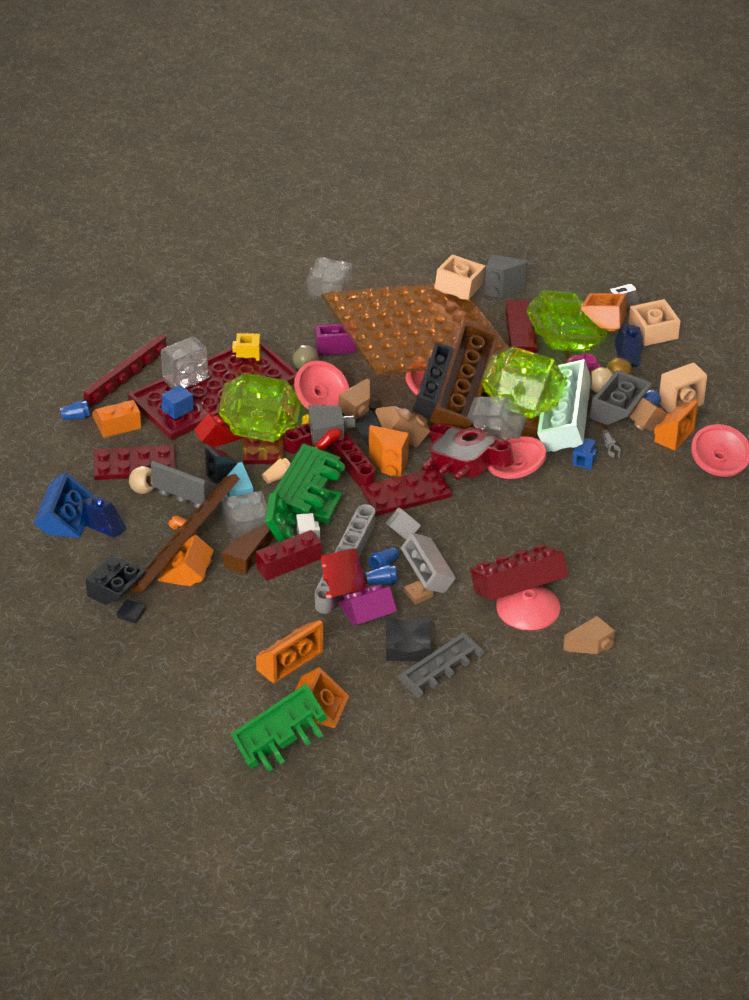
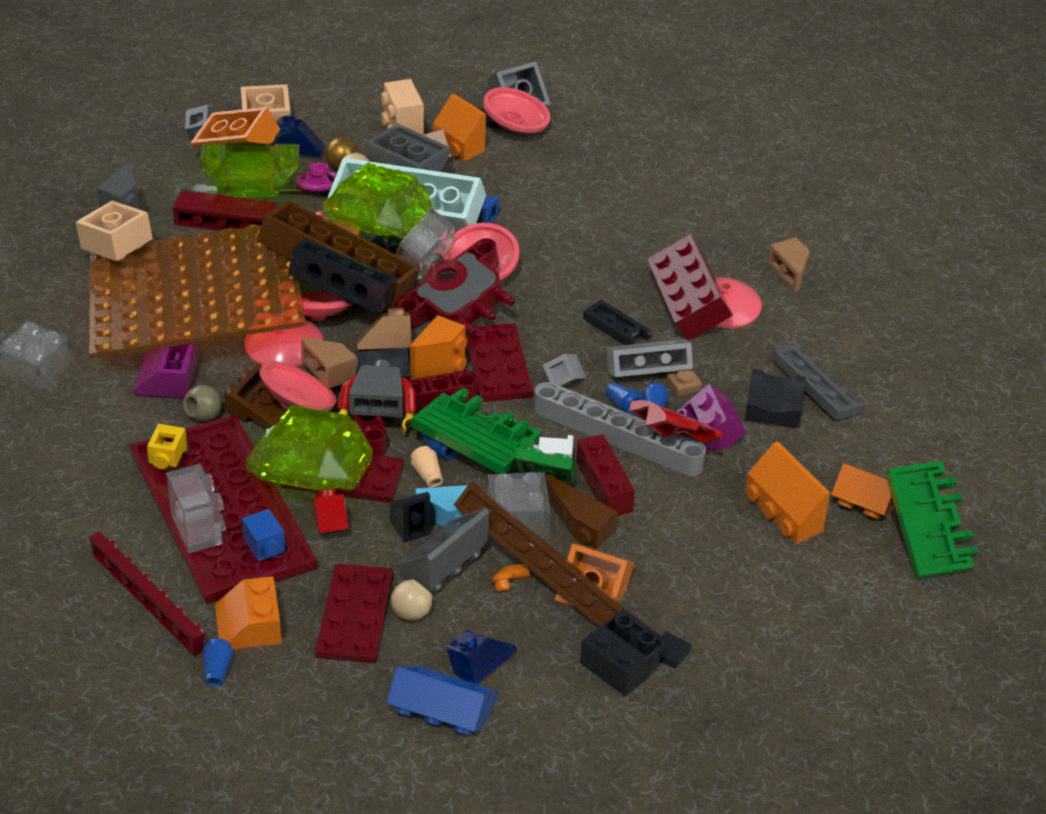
camera: 80 degrees left, 0 degrees up
(390, 389) = (280, 344): none -> coral dish
(471, 545) = (615, 323): none -> black hinge

